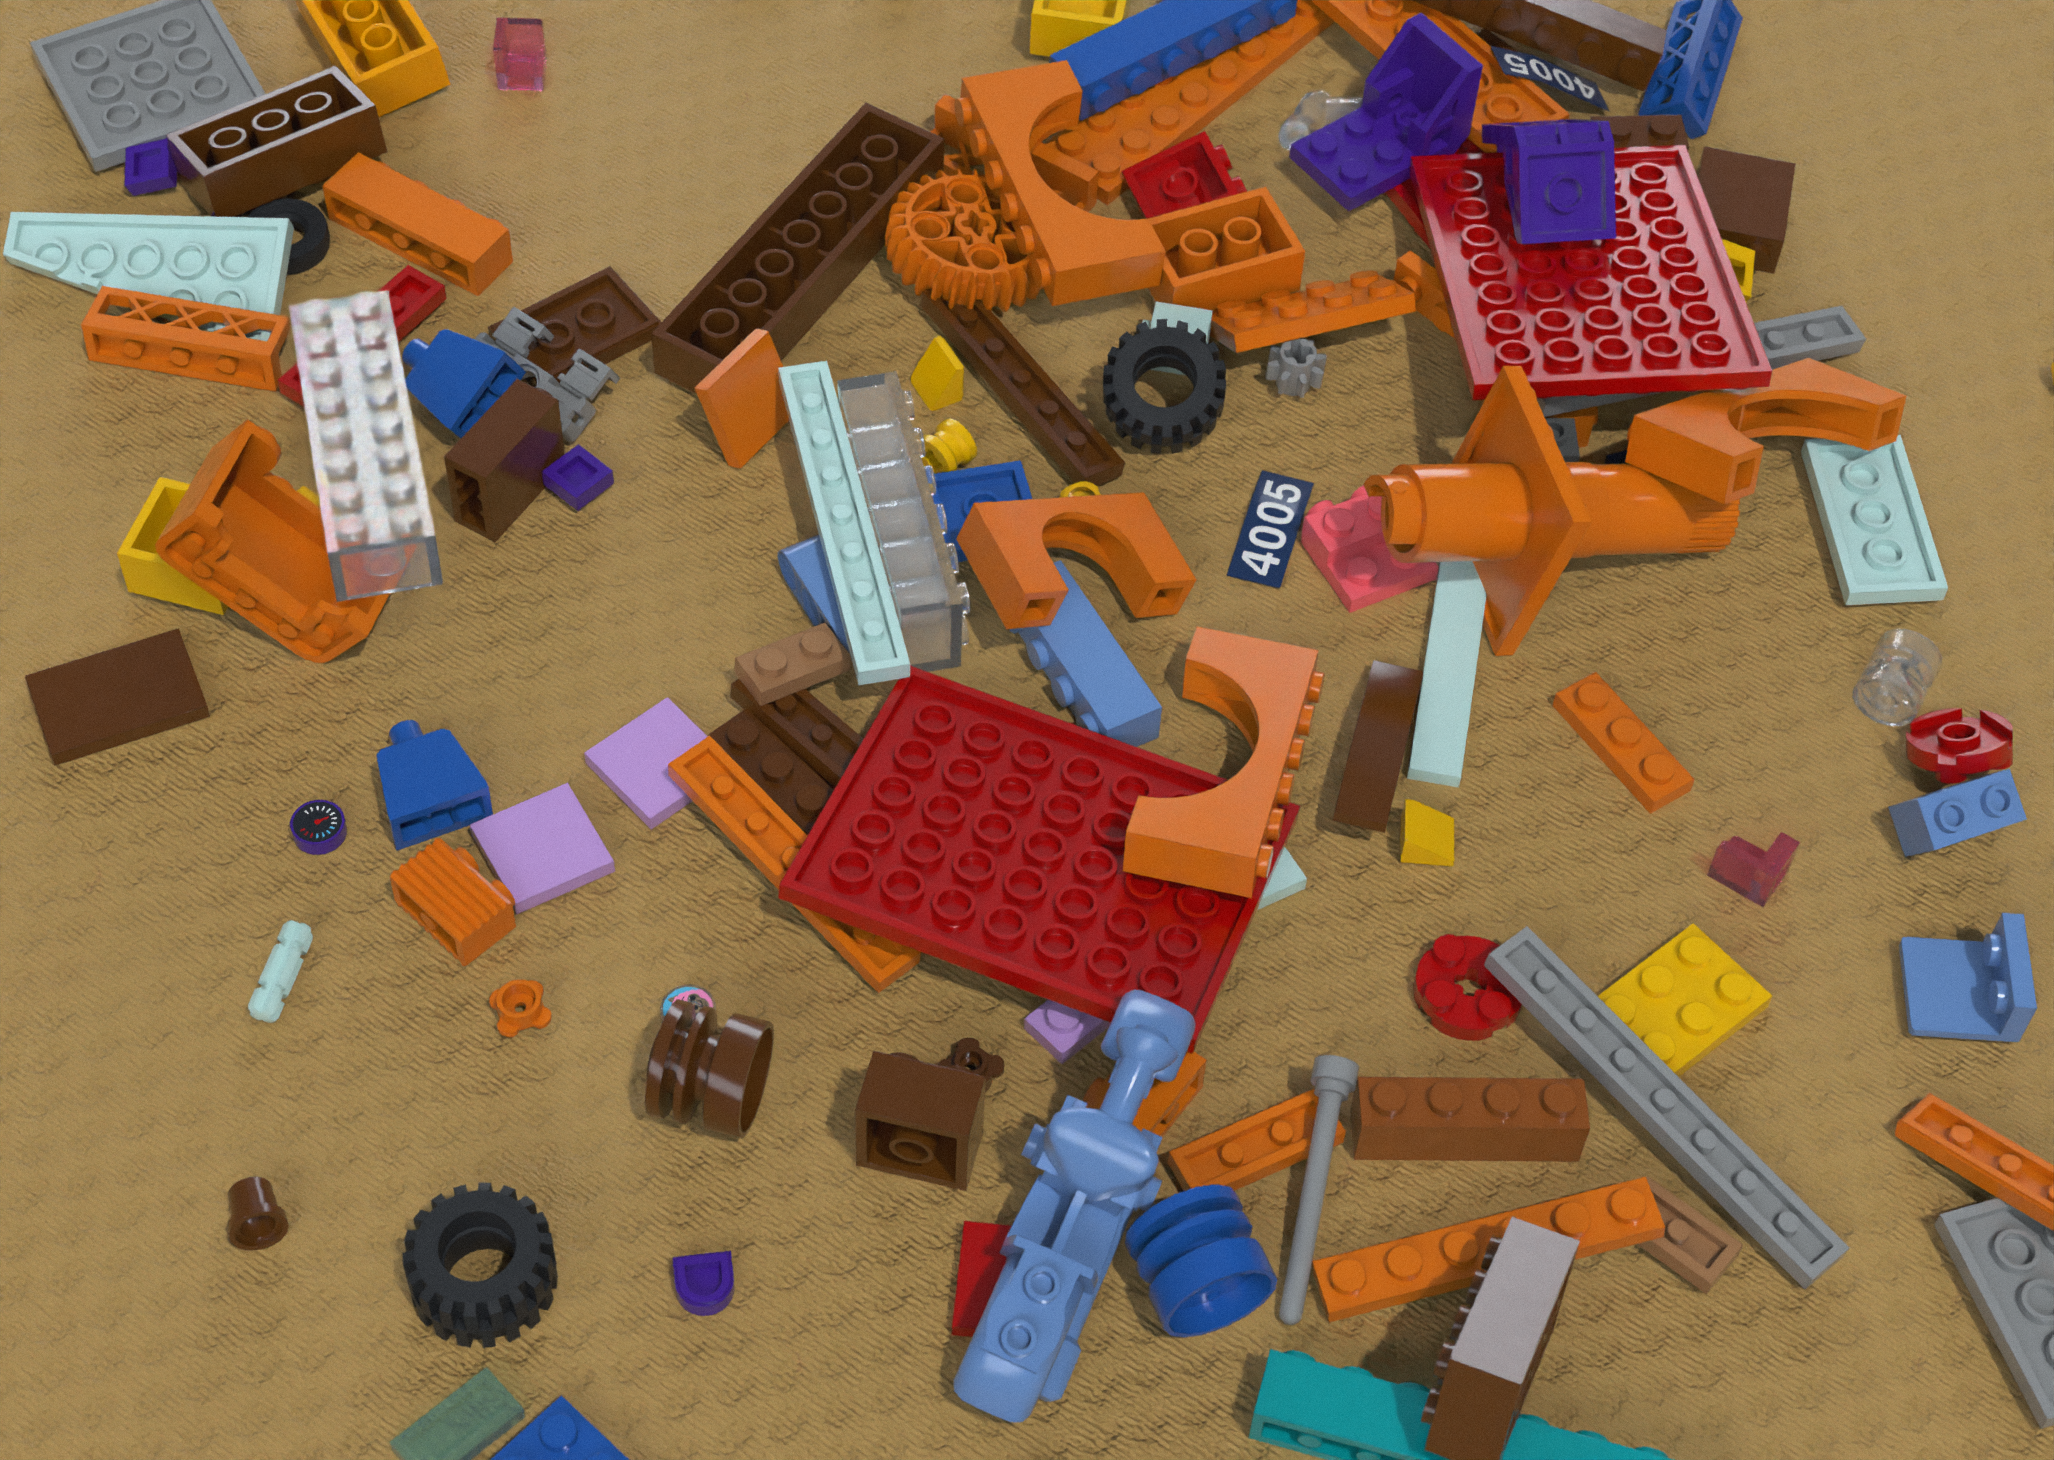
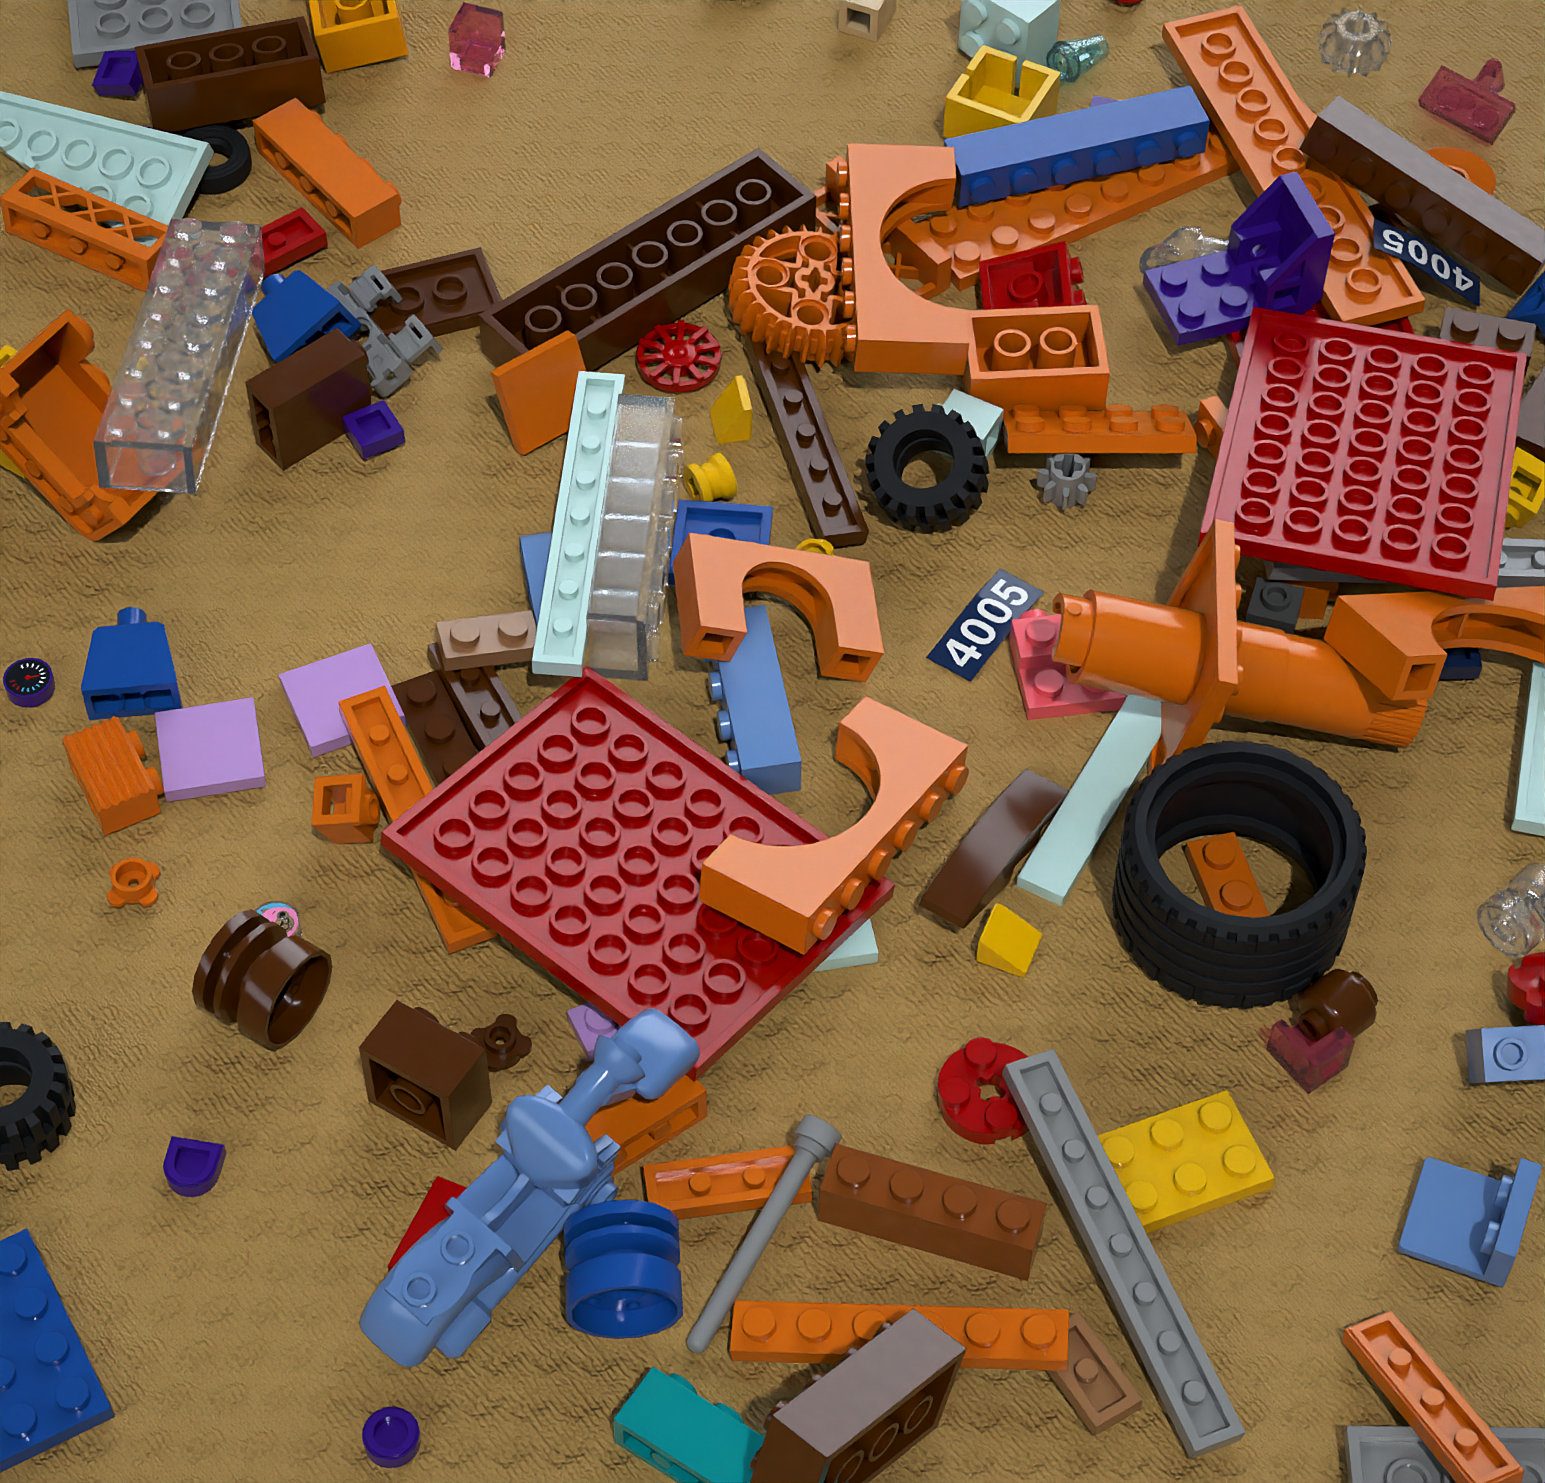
camera: 20 degrees right, 0 degrees up
(719, 871) = (354, 809): none -> orange brick
(858, 332) = (678, 356): none -> red wheel
(1558, 178) = (1369, 358): dark purple bracket -> none
(1647, 633) = (1256, 795): none -> black tyre
(1762, 812) = (1337, 1001): none -> reddish brown head

